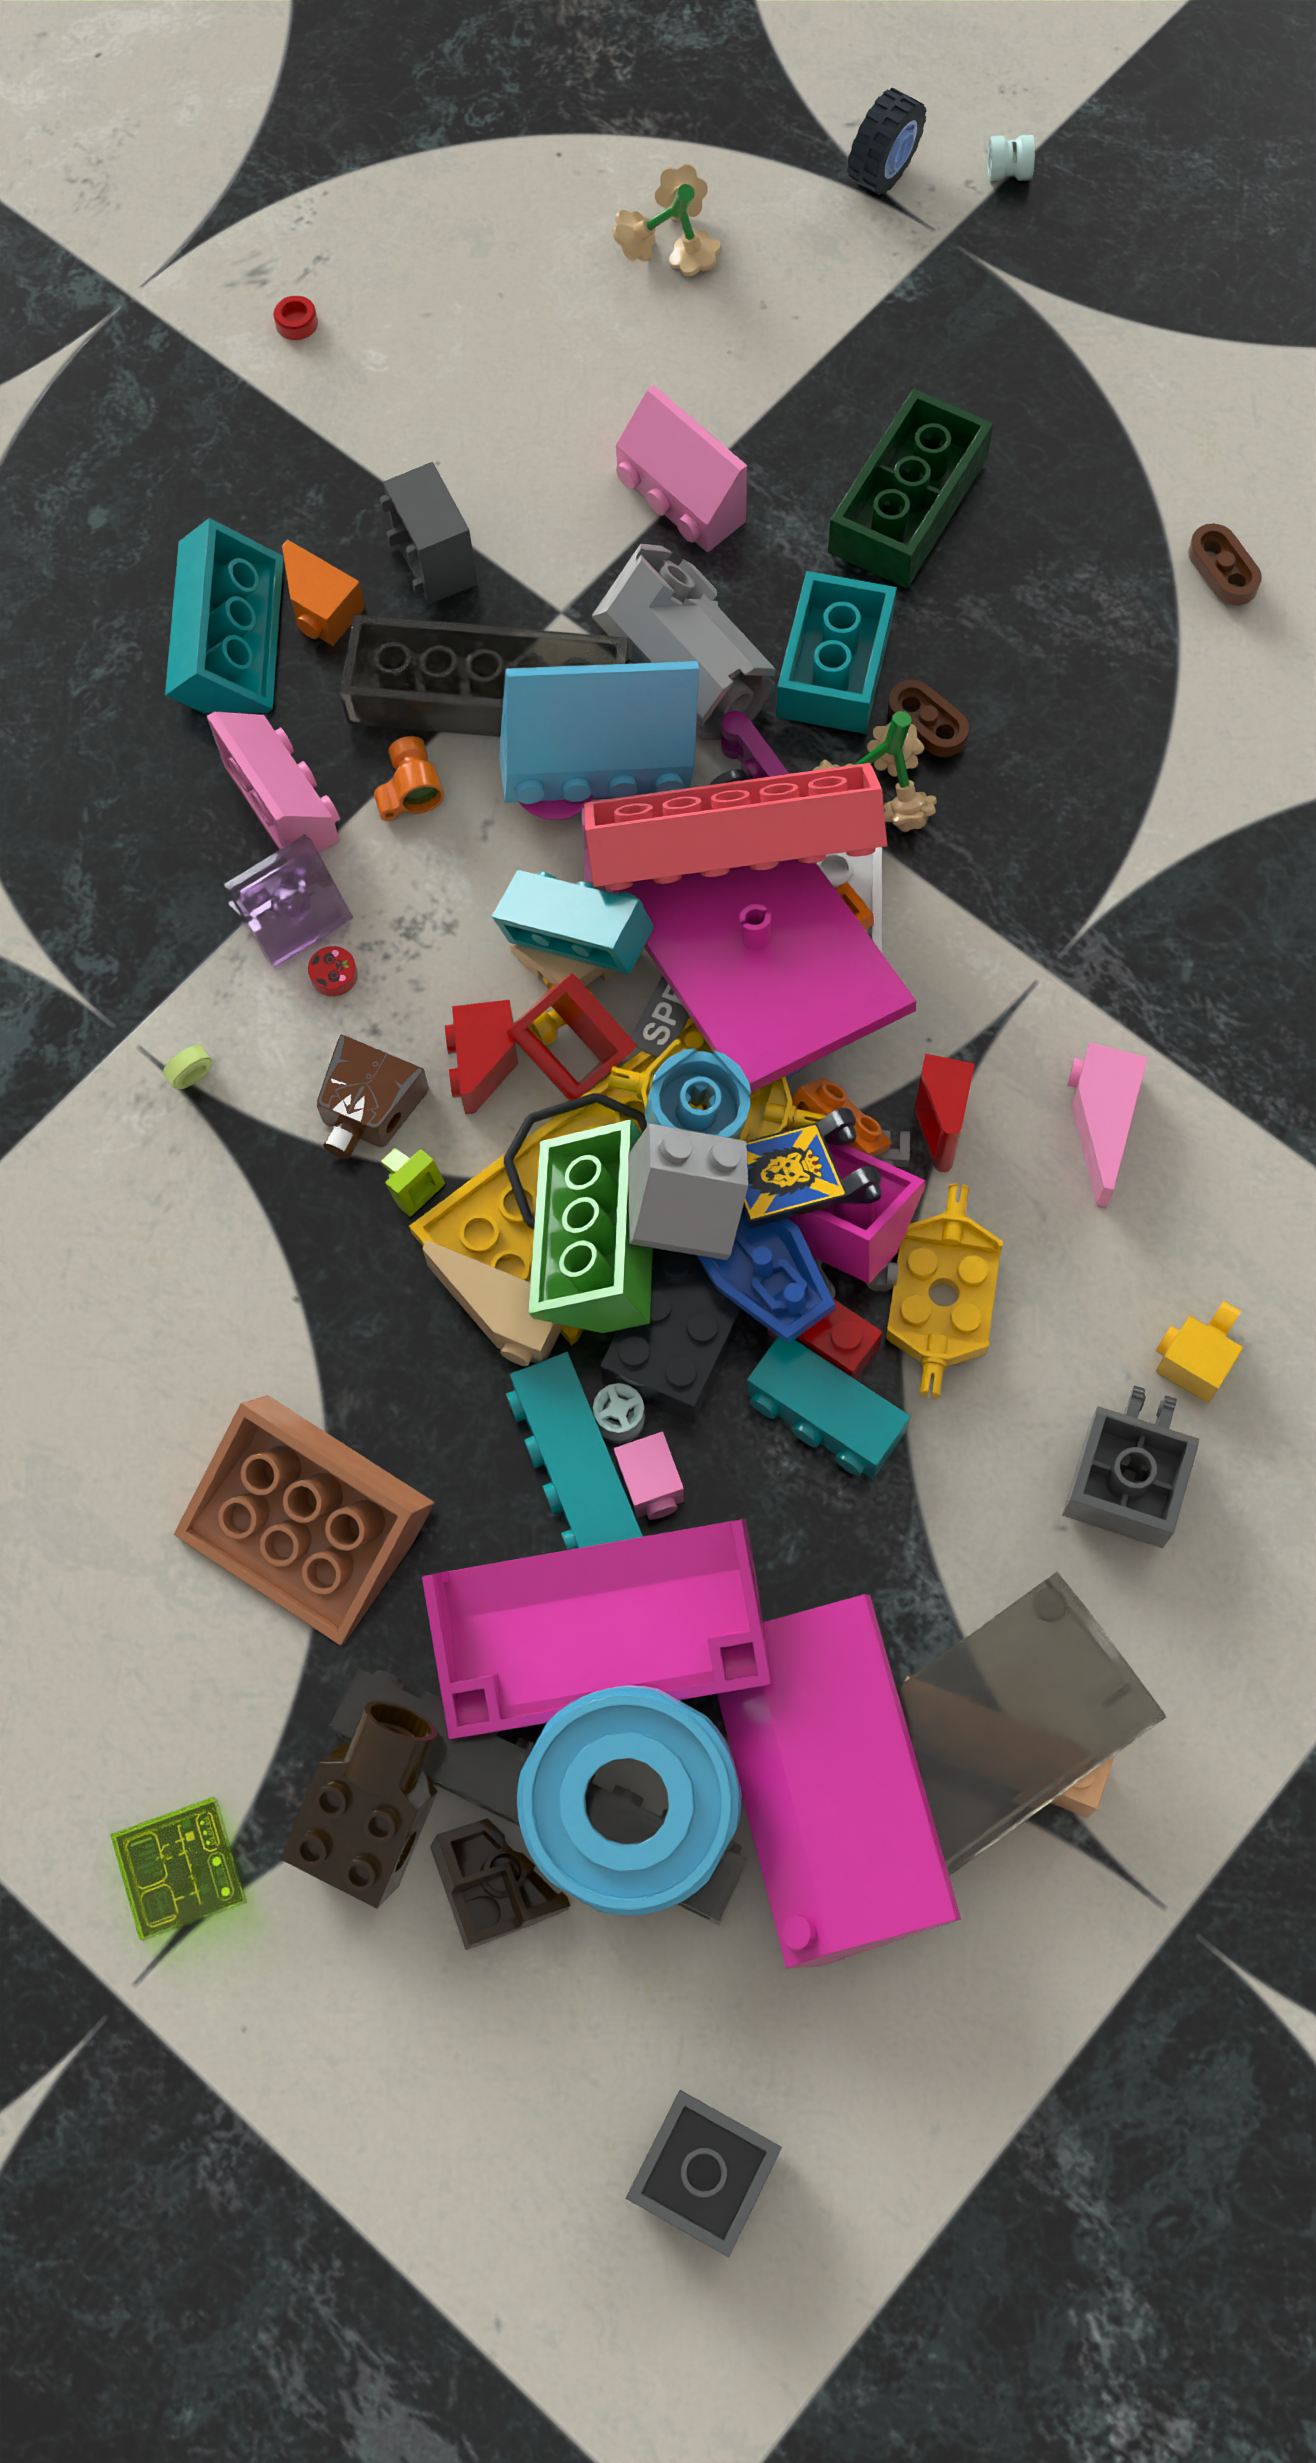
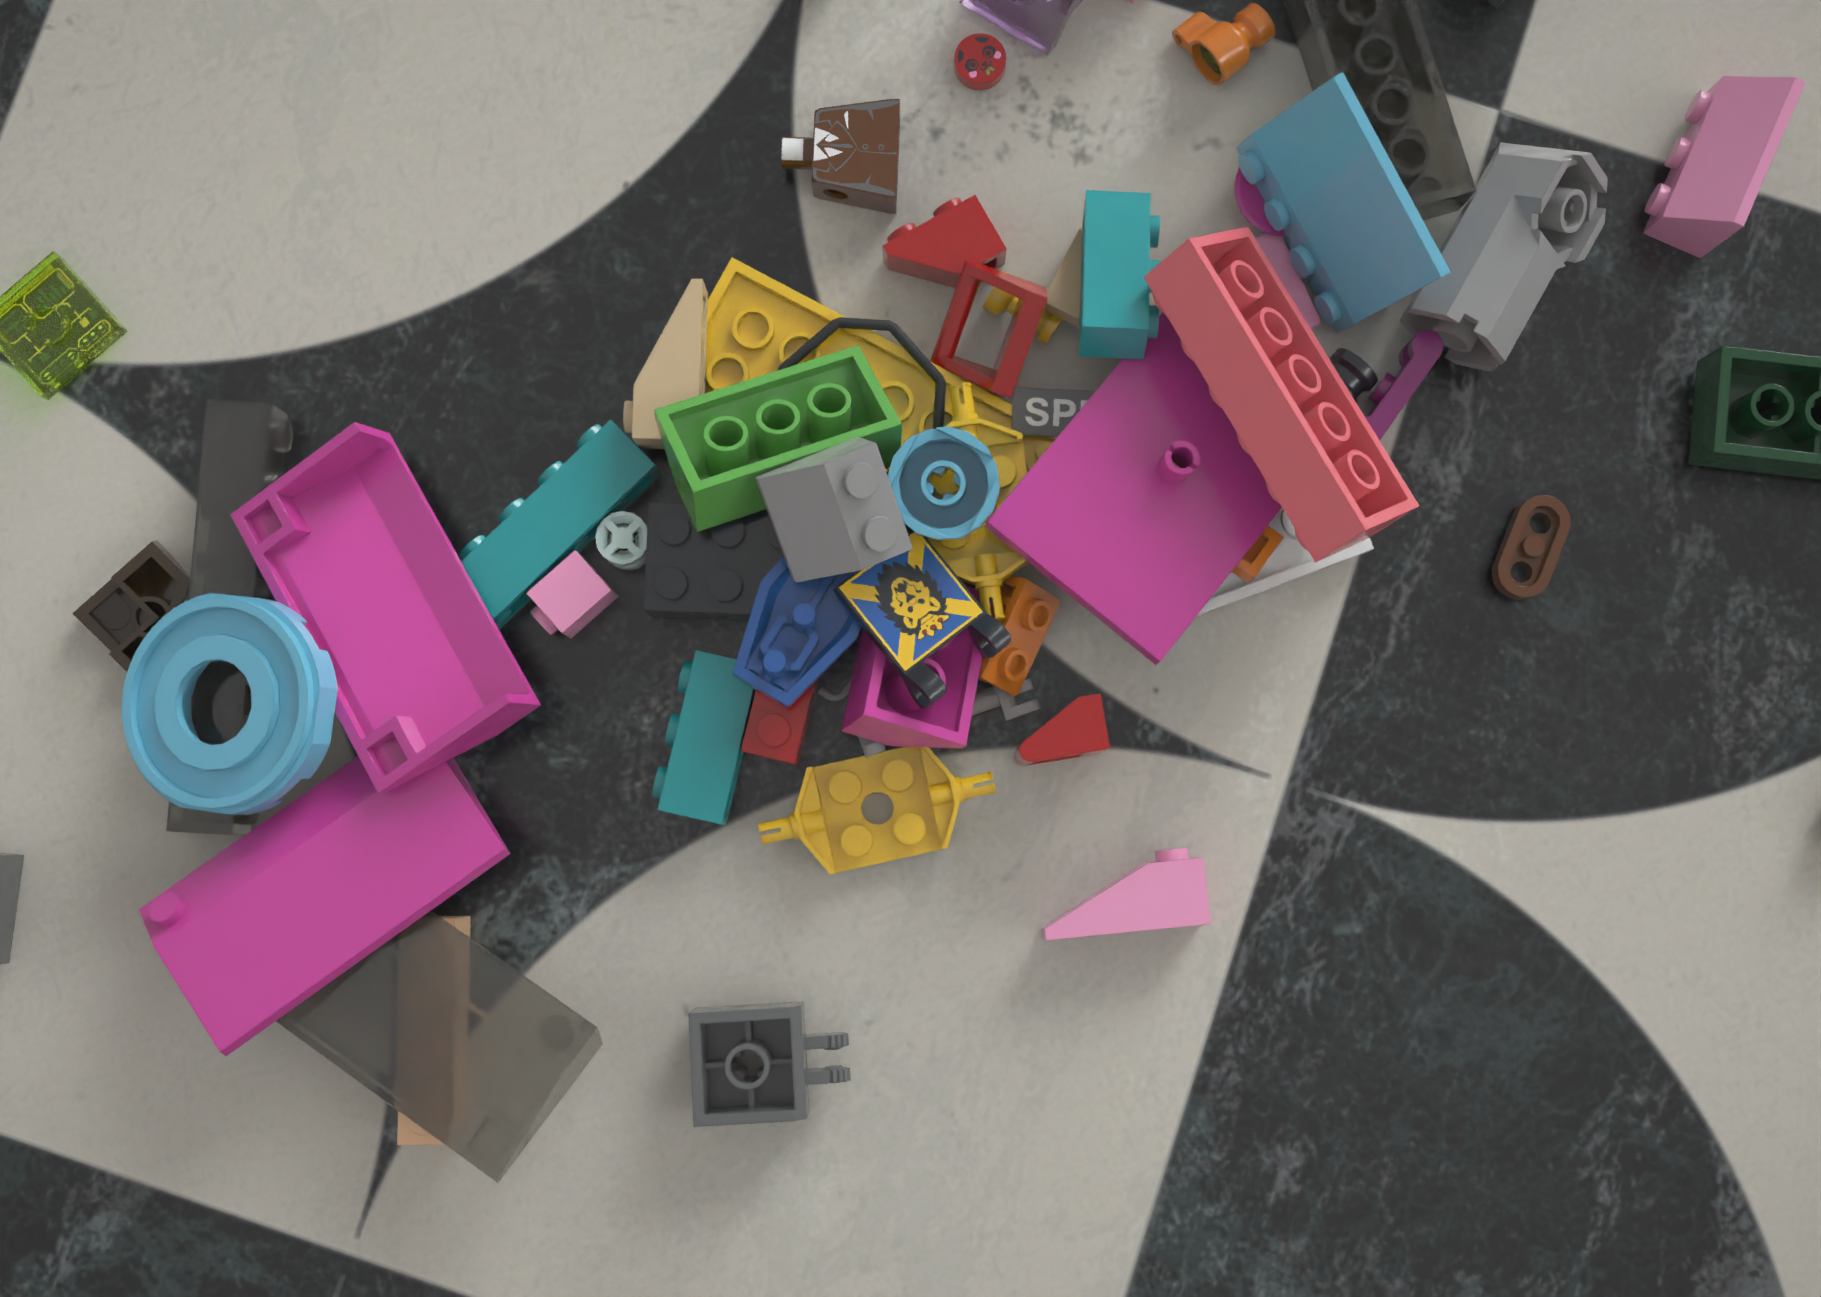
camera: 65 degrees right, 15 degrees up
(302, 1517) = (408, 287): nougat slope -> none
(367, 1805) = (144, 467): dark brown brick -> none
(412, 1179) = (782, 238): lime tile -> none
(835, 652) = (1565, 417): teal brick -> none
(896, 749) = (1473, 527): tan plant -> none
(1200, 1354) = (910, 1088): yellow brick -> none

